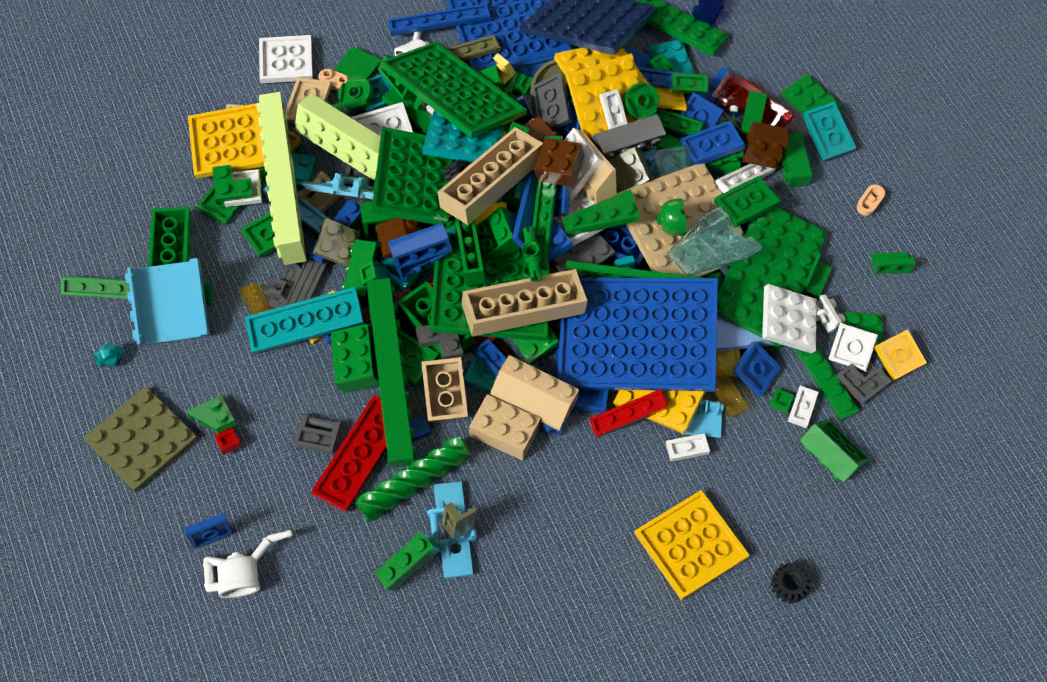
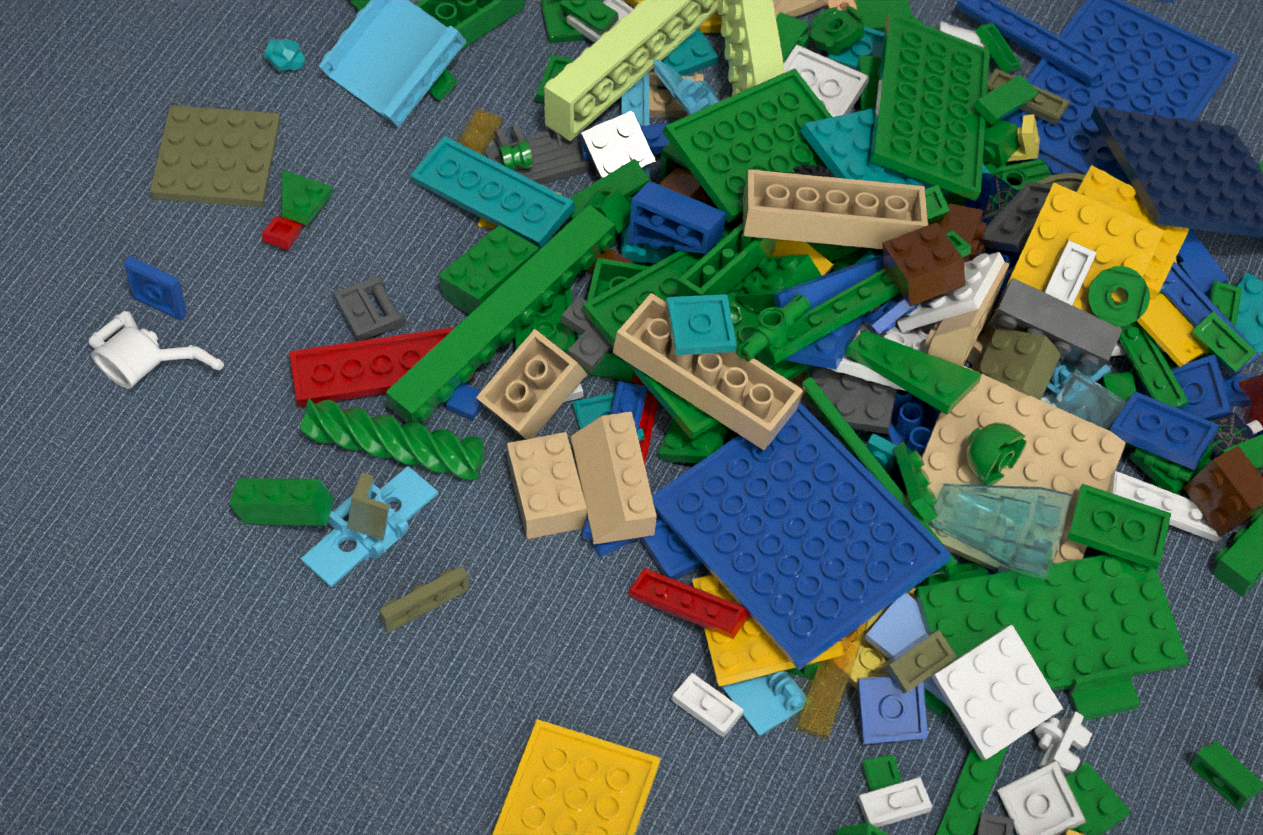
camera: 50 degrees right, 5 degrees down
(293, 292) = (518, 156): none -> green wheel
(431, 37) = (998, 48): none -> green tile
(475, 58) = (1005, 99): none -> green tile
(504, 283) = (700, 324): none -> teal plate
(520, 533) = (424, 599): none -> olive plate
(661, 261) = (916, 481): none -> green plate
(748, 337) = (918, 660): none -> olive panel

